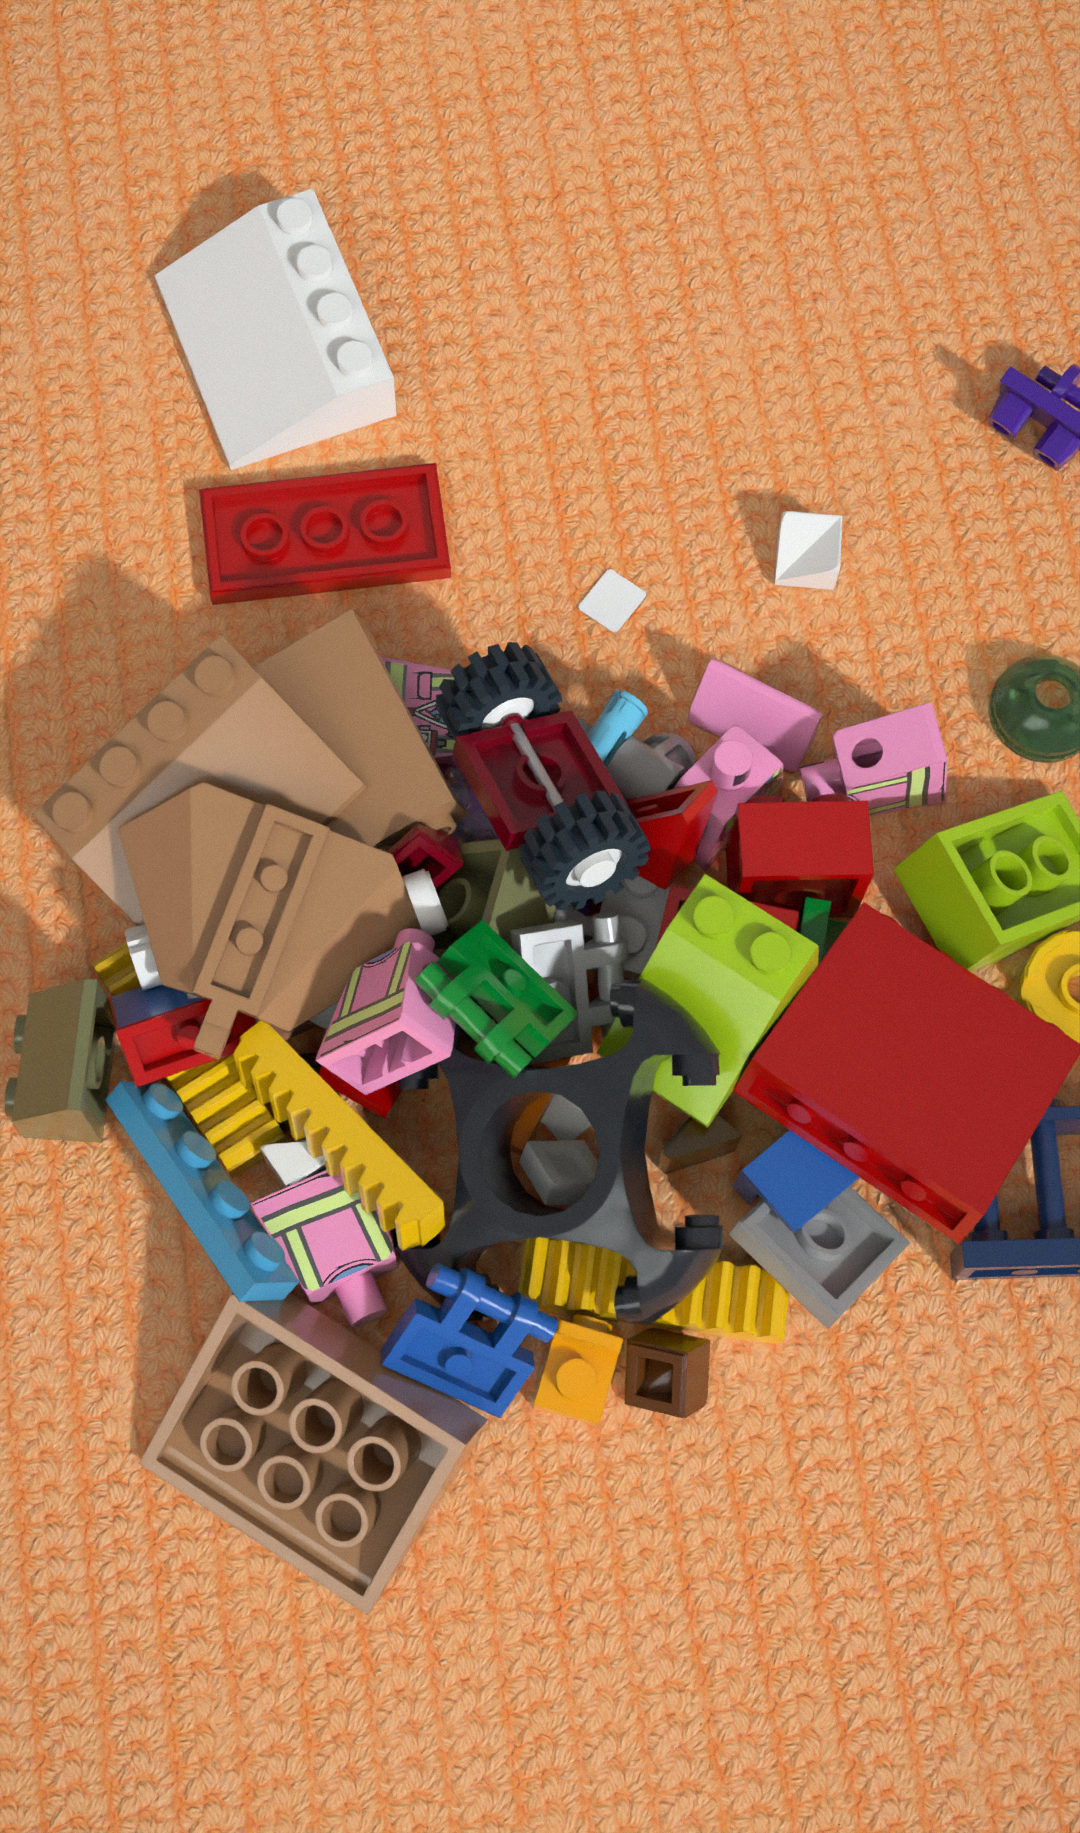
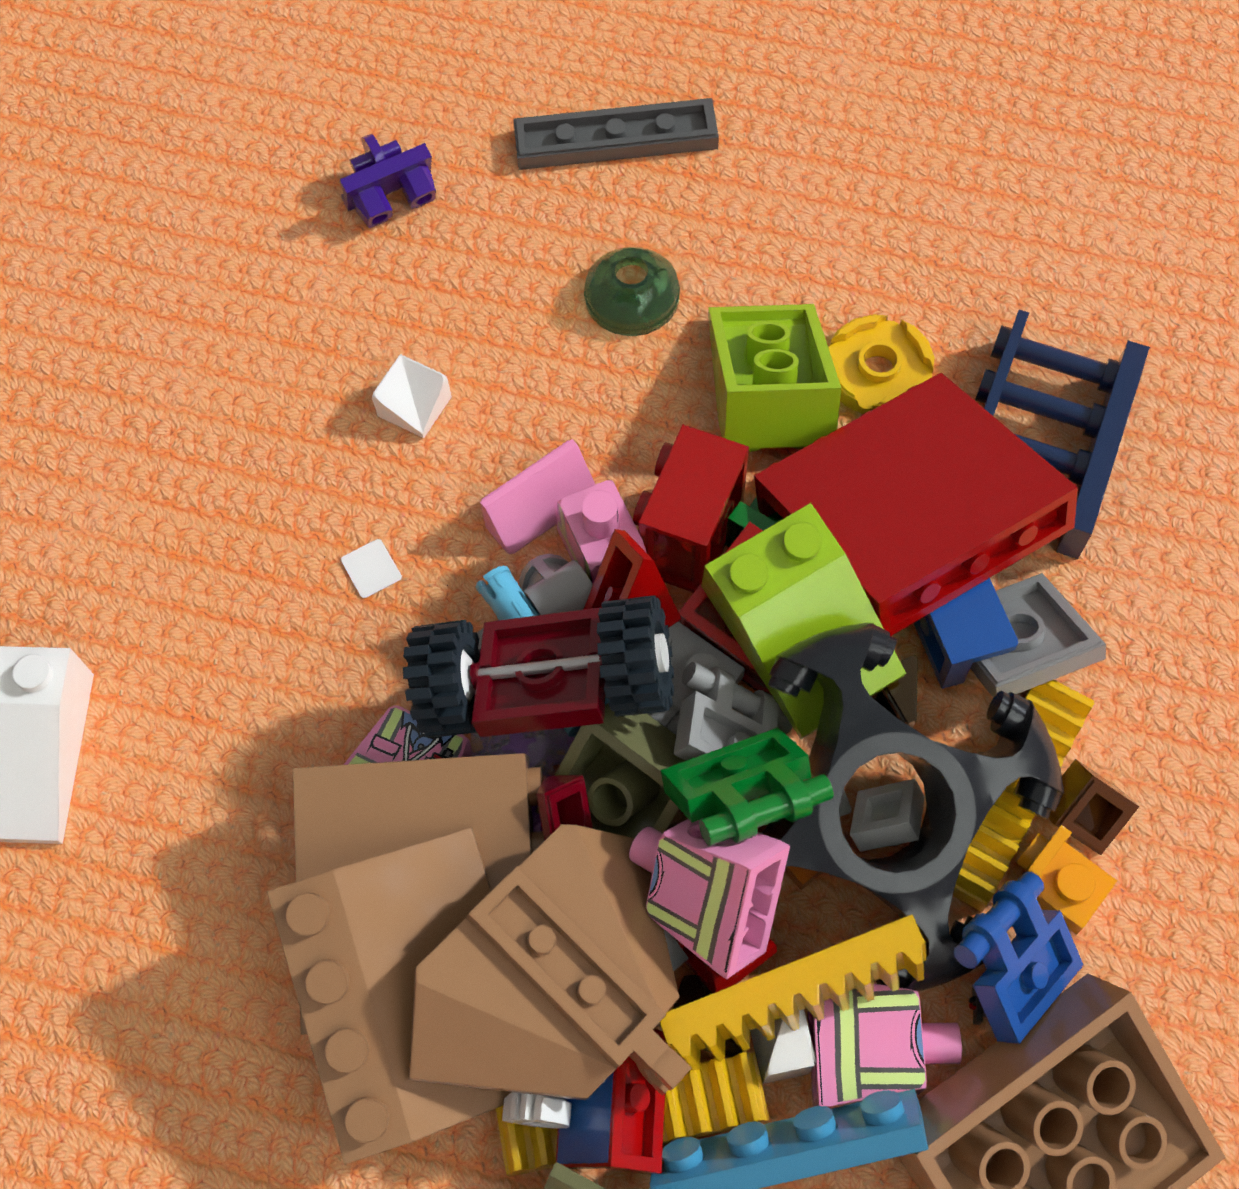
camera: 60 degrees left, 5 degrees down
(324, 534) = (175, 785): red tile -> none
(425, 902) = (610, 817): white tile -> none
(887, 760) = (636, 413): bright pink torso -> none

